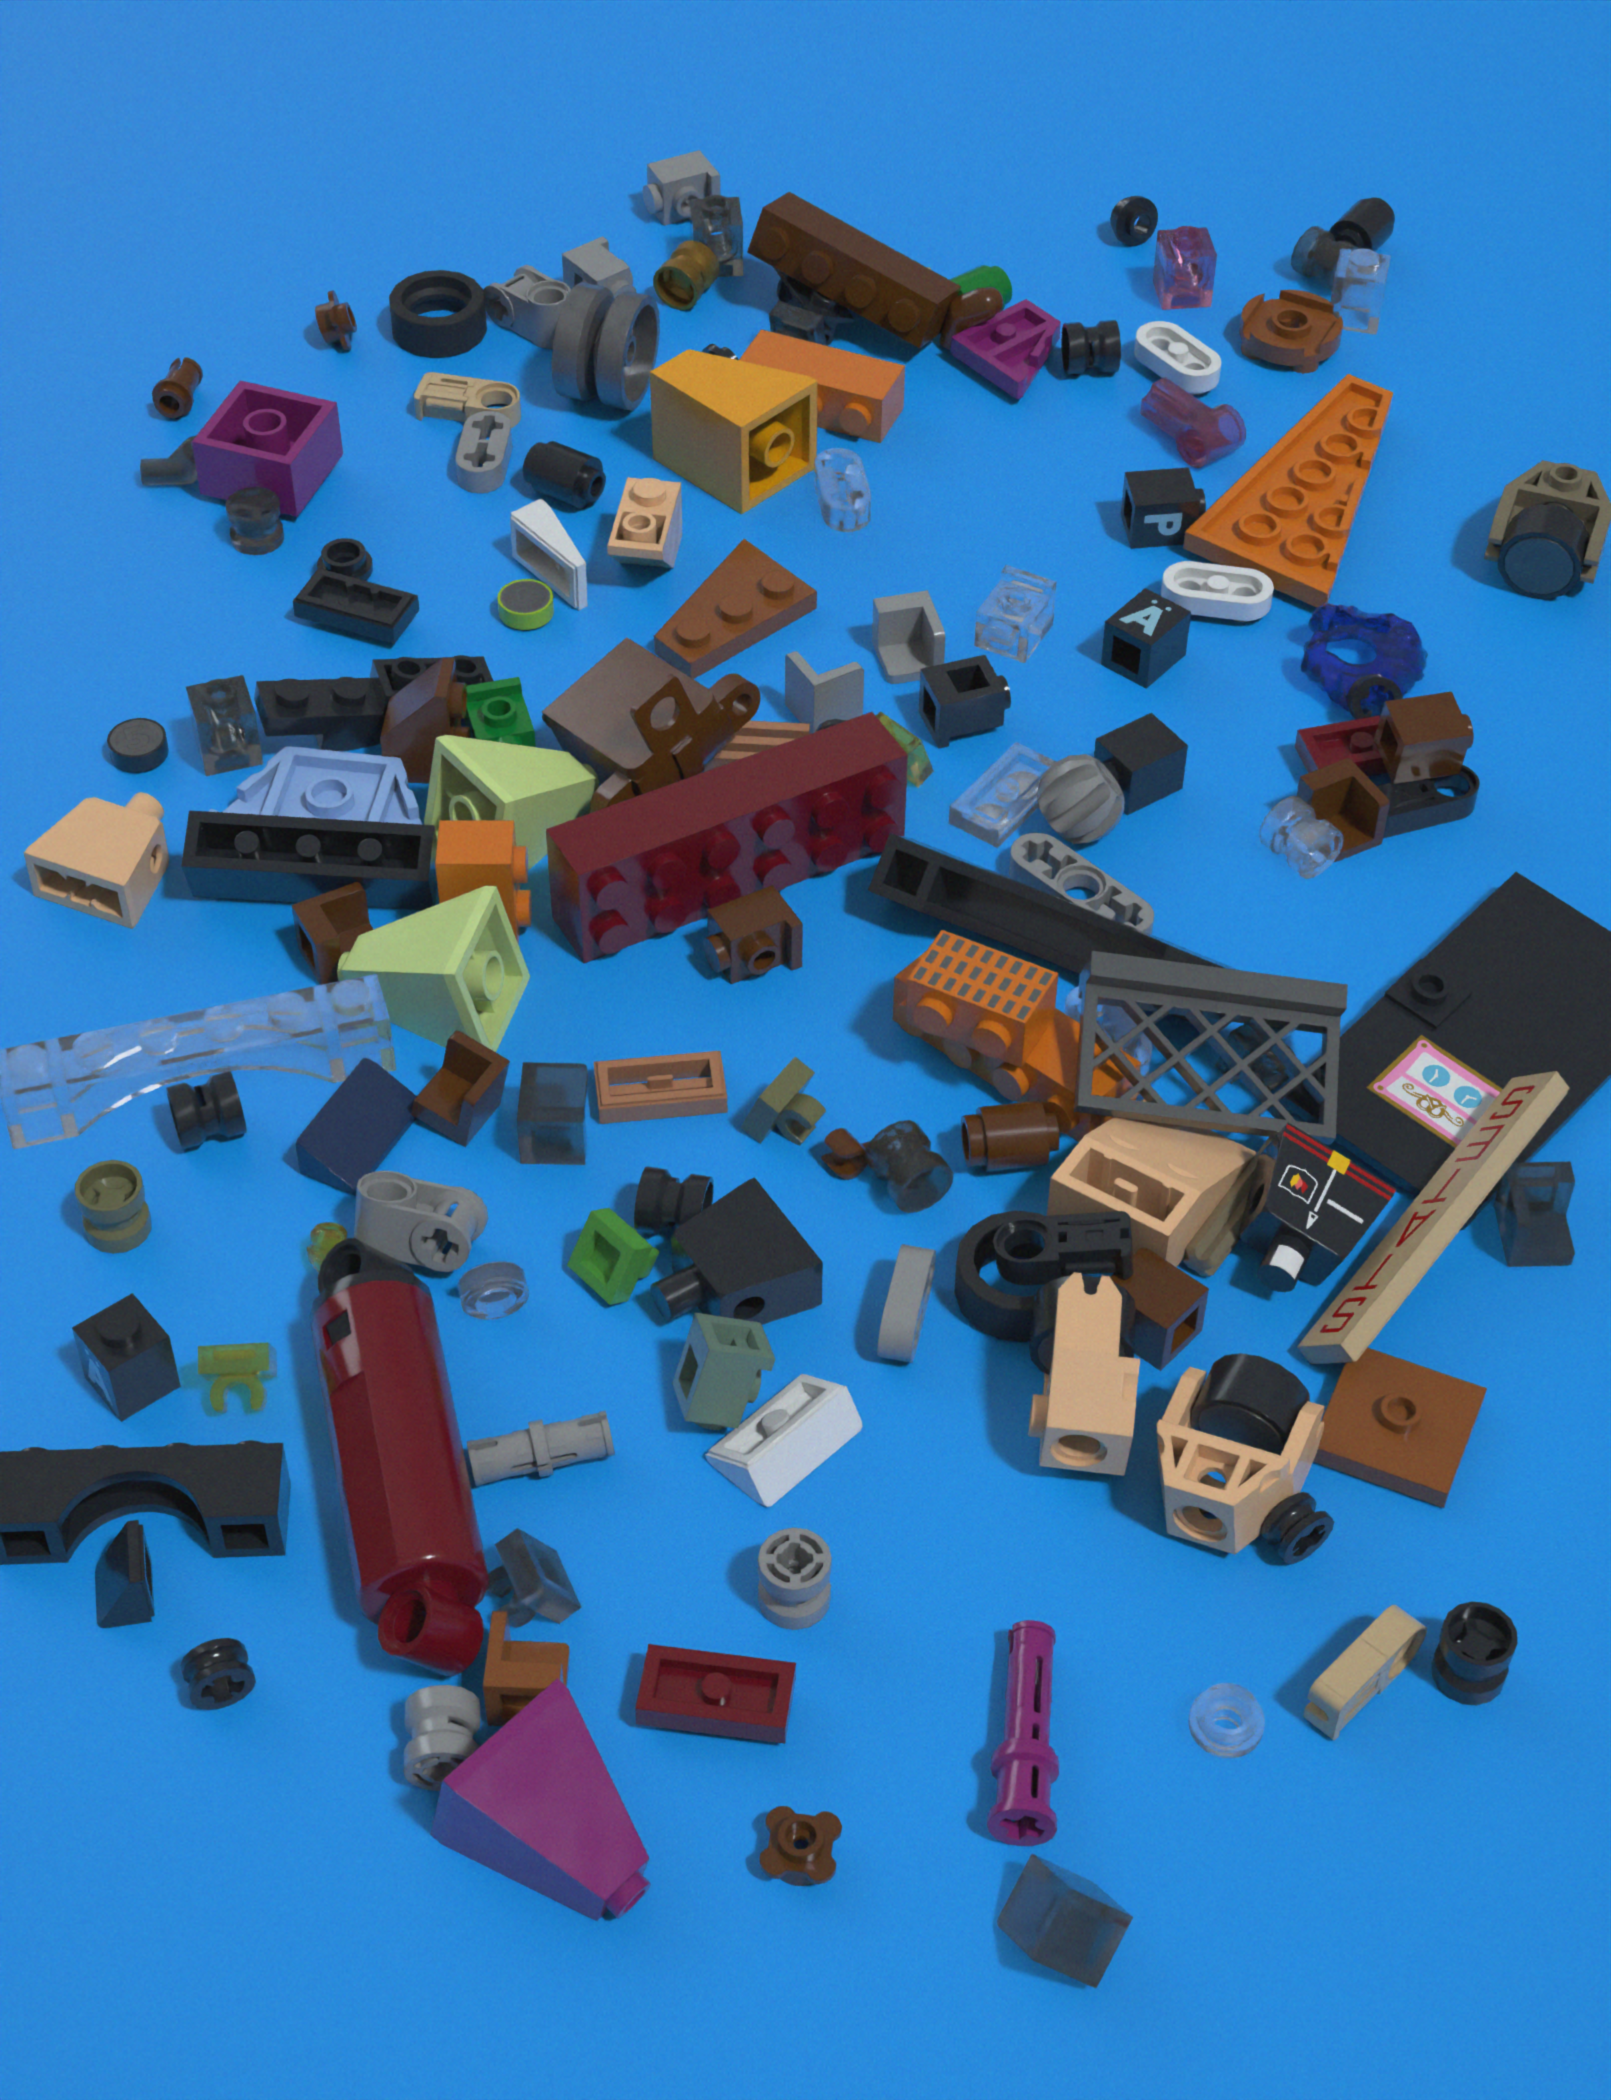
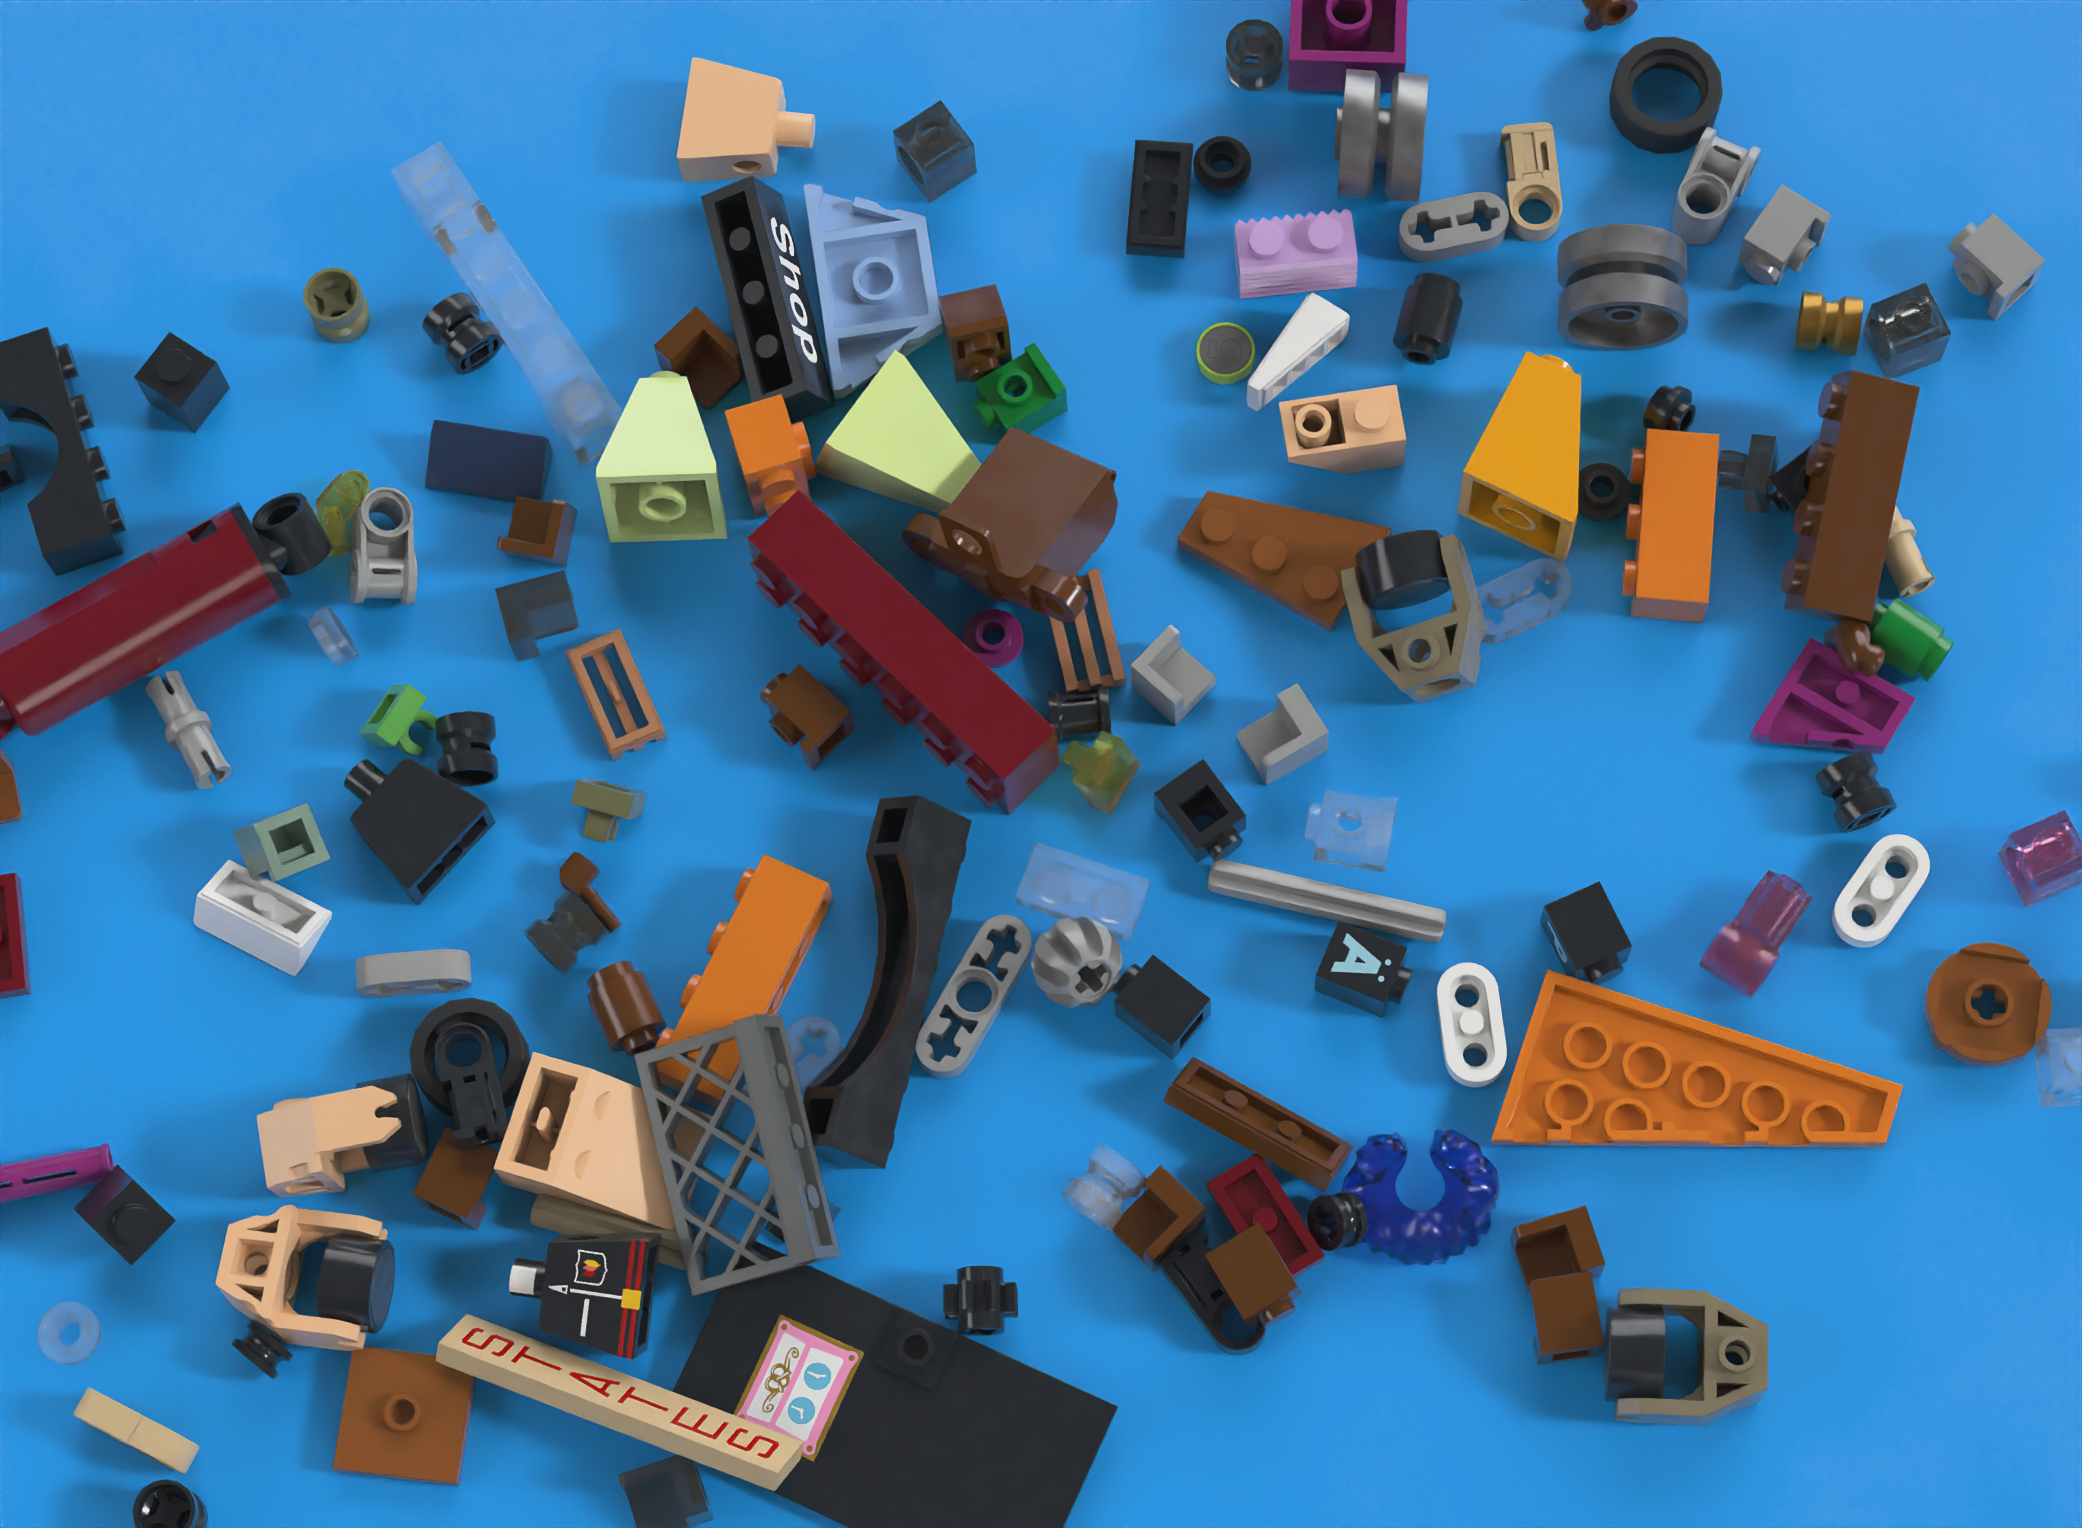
camera: 80 degrees right, 25 degrees up
(138, 745) = (906, 85): tile -> none
(237, 1365) = (202, 469): tile -> none
(348, 710) = (1026, 278): black slope -> none
(390, 440) = (1381, 135): none -> flat silver wheel
(461, 530) = (1295, 254): none -> lavender brick
(537, 1580) = (59, 769): clear smoke tile -> none
(794, 1578) = (113, 975): light grey wheel -> none
(881, 525) = (1405, 573): none -> dark tan piece
(981, 998) = (725, 935): orange brick -> none
(1067, 655) = (1327, 900): none -> light grey axle
(1110, 1610) = (124, 1214): none -> black brick
(1267, 729) = (1258, 1123): none -> reddish brown tile
(1391, 938) = (980, 1300): none -> black gear
(1434, 581) = (1557, 1246): none -> reddish brown panel
(1502, 580) = (1566, 1318): none -> reddish brown panel

